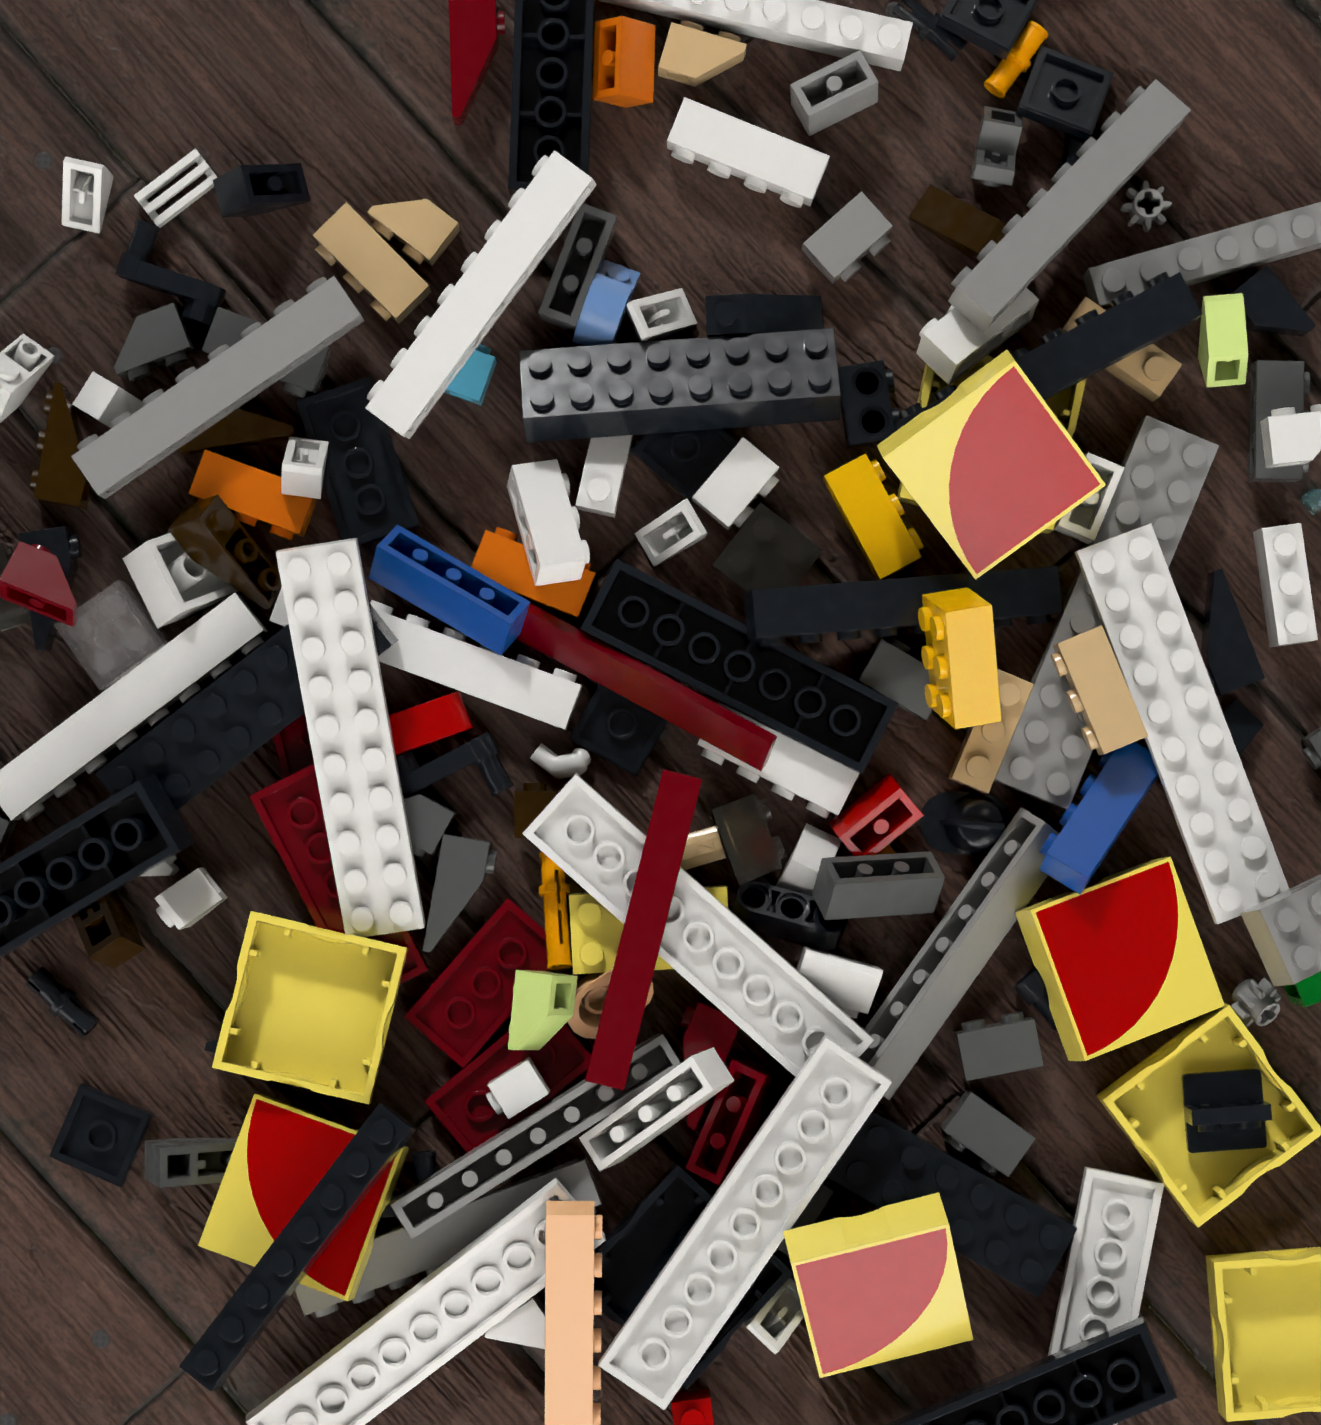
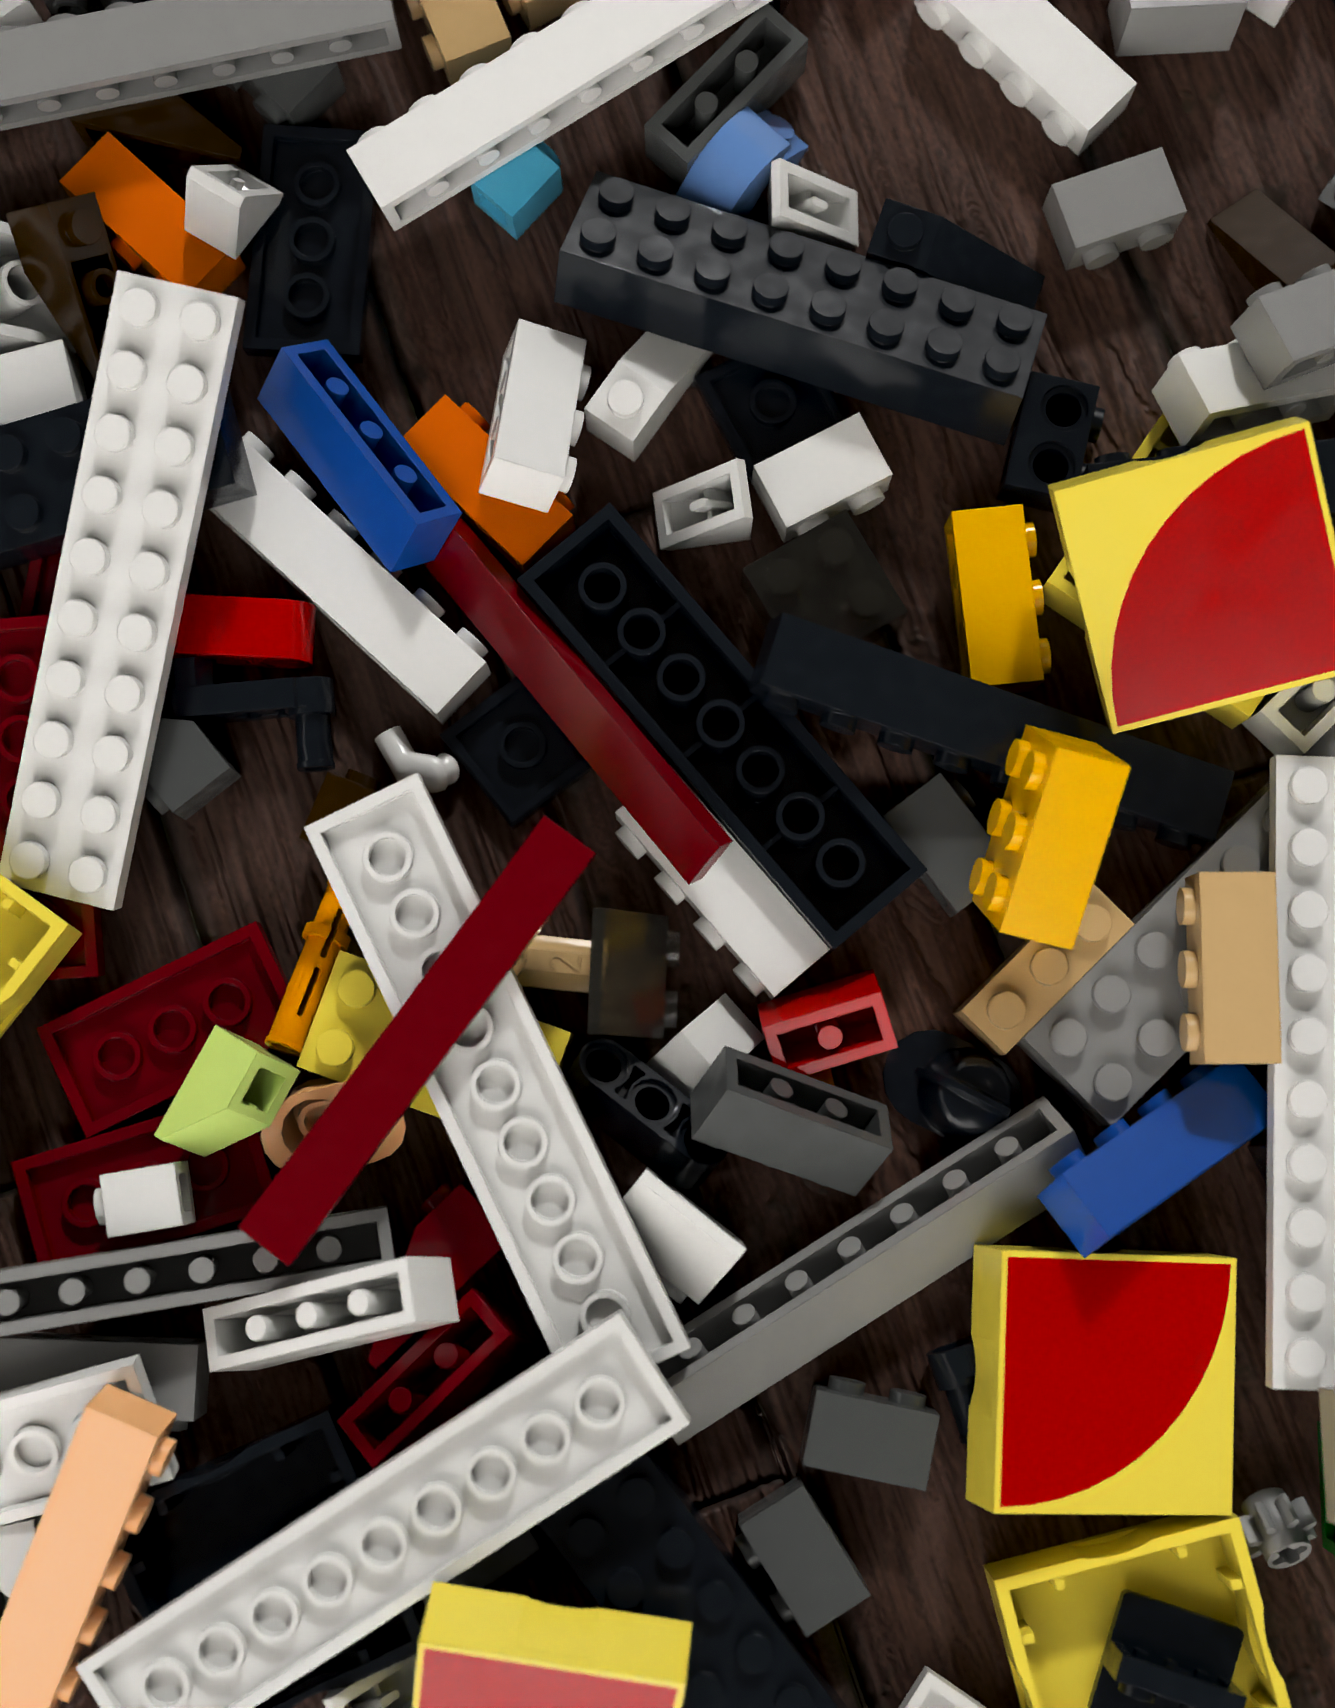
camera: 25 degrees right, 5 degrees down
(458, 877) = (197, 865): dark grey slope -> none

